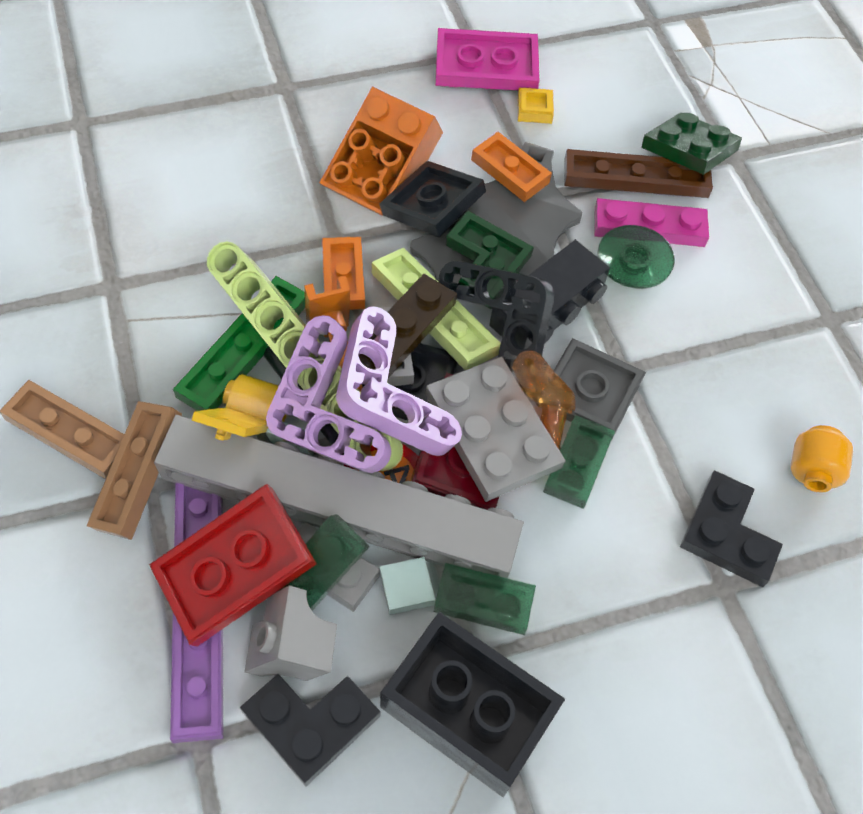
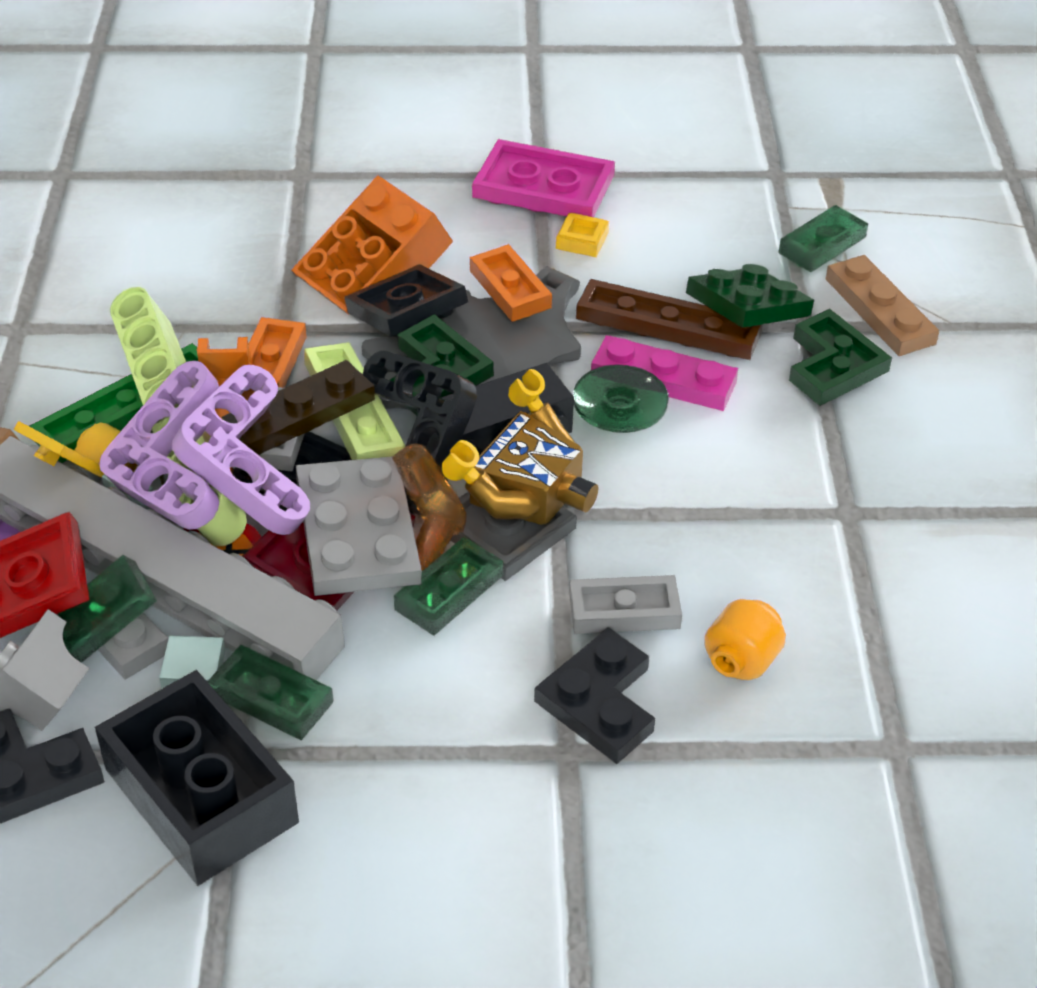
camera: 20 degrees right, 15 degrees down
(605, 339) = (528, 466): none -> torso
(717, 77) = (823, 238): none -> clear green plate
(717, 445) = (625, 604): none -> light grey plate
(778, 181) = (839, 359): none -> dark green plate
(780, 128) = (882, 305): none -> medium nougat plate

